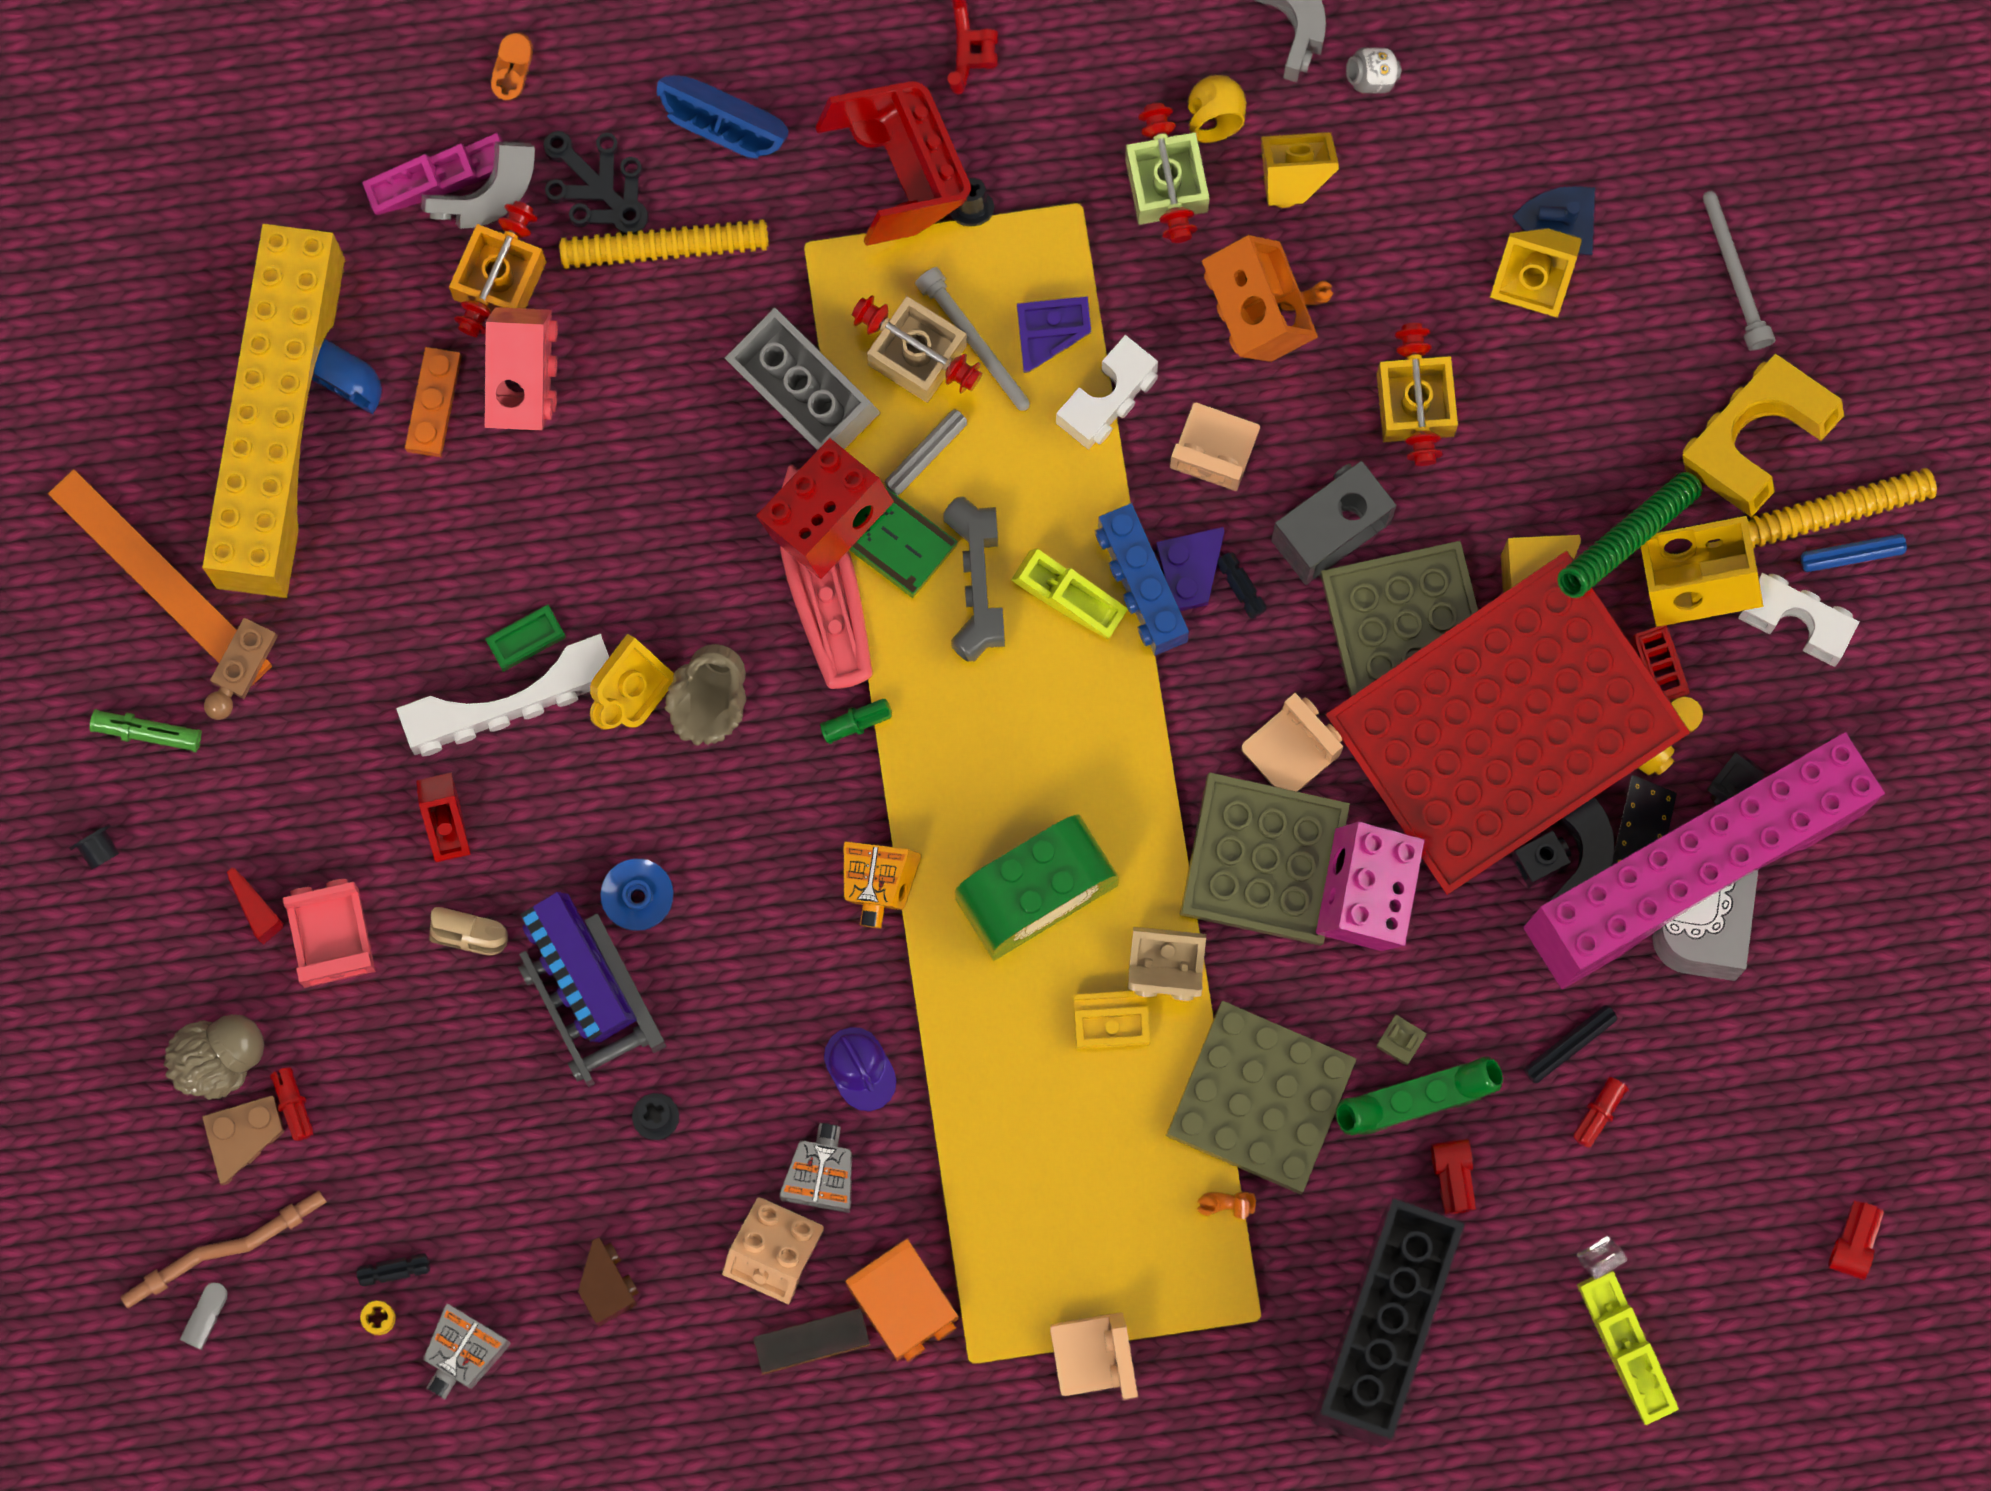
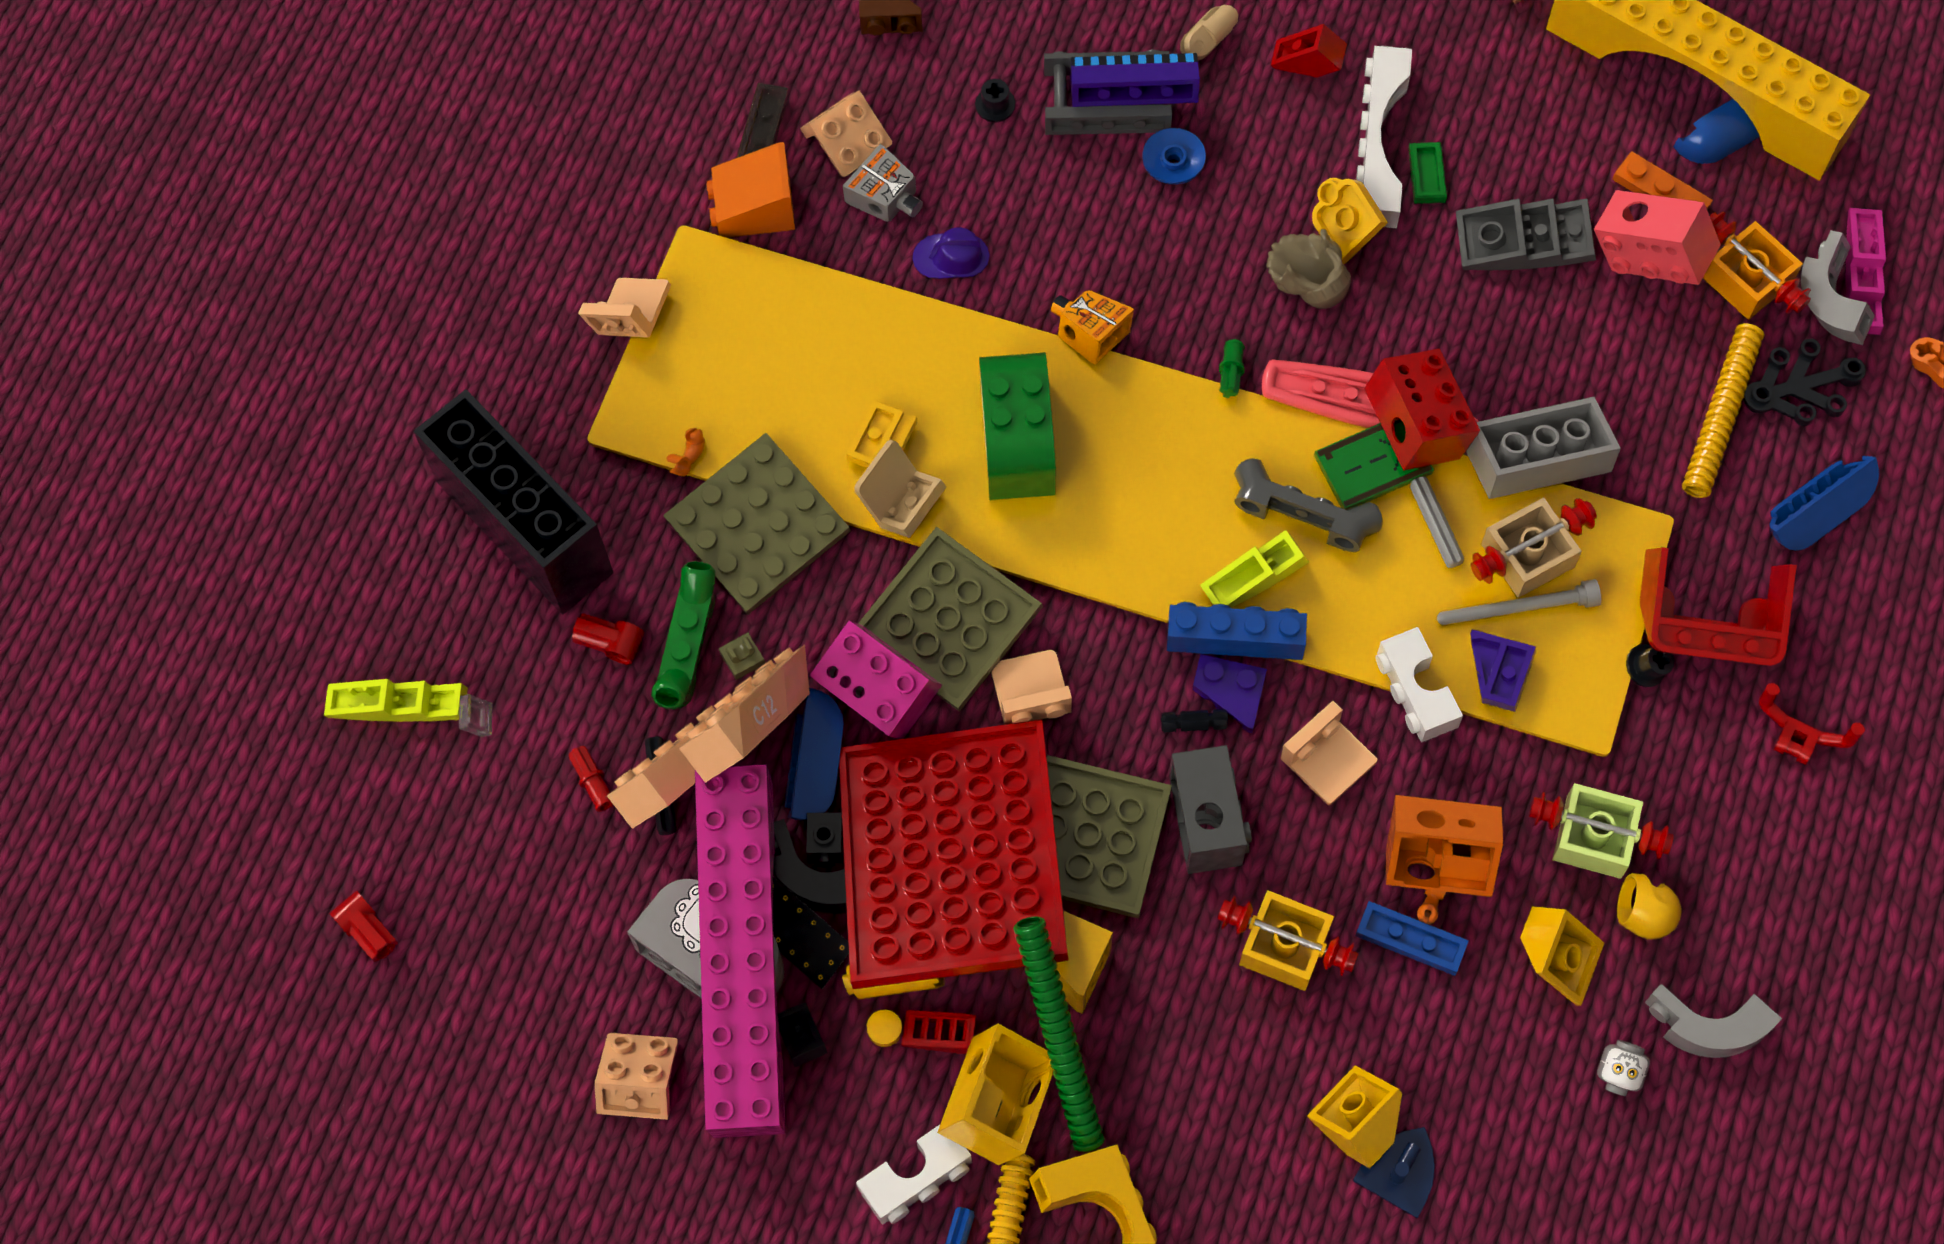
camera: 120 degrees right, 10 degrees down
(555, 509) = (1525, 235): none -> dark grey slope
(1350, 298) = (1412, 938): none -> blue plate
(1463, 985) = (717, 740): none -> light nougat piece
(1472, 911) = (814, 756): none -> blue brick
(1847, 911) = (635, 1076): none -> light nougat bracket

